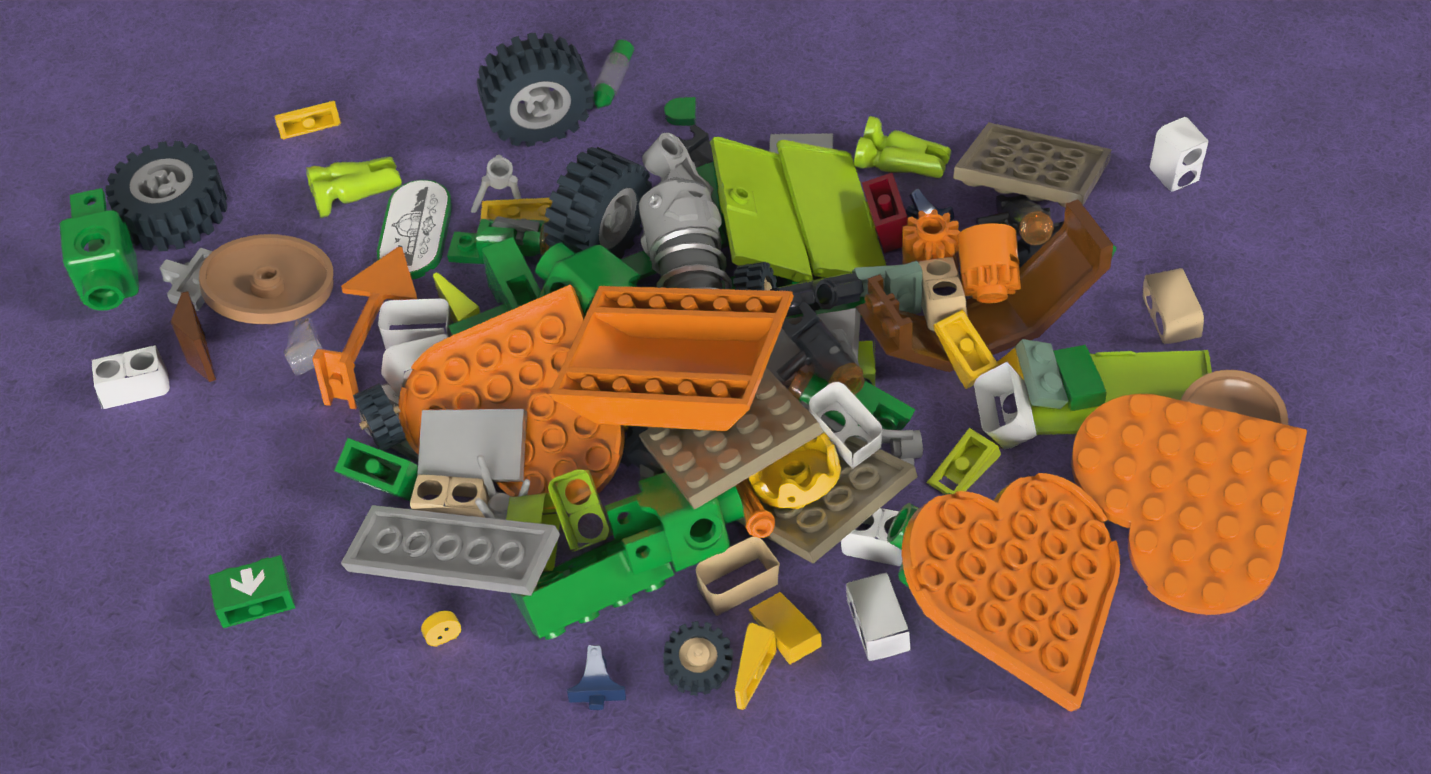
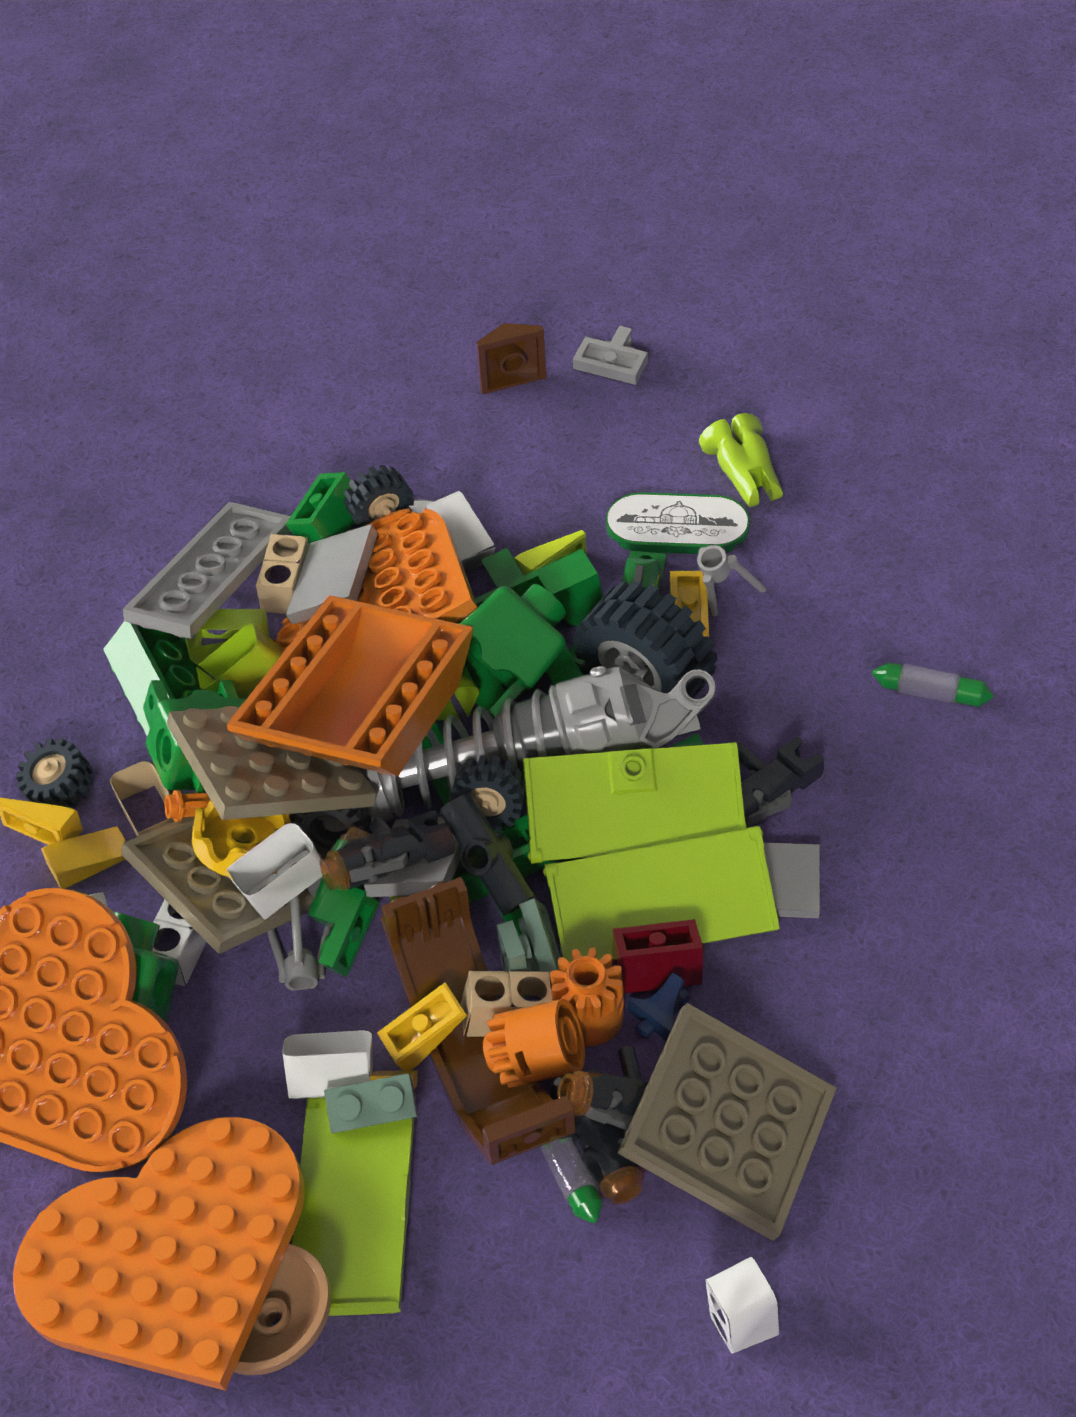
camera: 90 degrees right, 0 degrees up
(110, 267) = (619, 275): green piece -> none
(117, 390) = (466, 309): white piece -> none
(167, 195) = (720, 335): black wheel -> none
(251, 591) = (208, 442): green brick -> none
(266, 279) = (593, 404): medium nougat dish -> none
(302, 345) = (515, 452): clear piece -> none
(307, 119) = (848, 418): yellow slope -> none
(381, 281) = (583, 499): orange piece -> none
(412, 312) = (519, 505): white piece -> none
(440, 628) = (136, 576): yellow tile -> none
(497, 503) = (271, 610): light grey plant -> none
(525, 74) = (850, 585): black wheel -> none
(596, 683) = (55, 700): dark blue piece -> none
(681, 111) = (867, 756): green tile -> none
(899, 152) = (779, 986): lime piece -> none
(965, 462) = (267, 1030): neon yellow slope -> none
(1080, 378) = (367, 1148): green slope -> none
(1176, 305) = (475, 1264): tan piece -> none

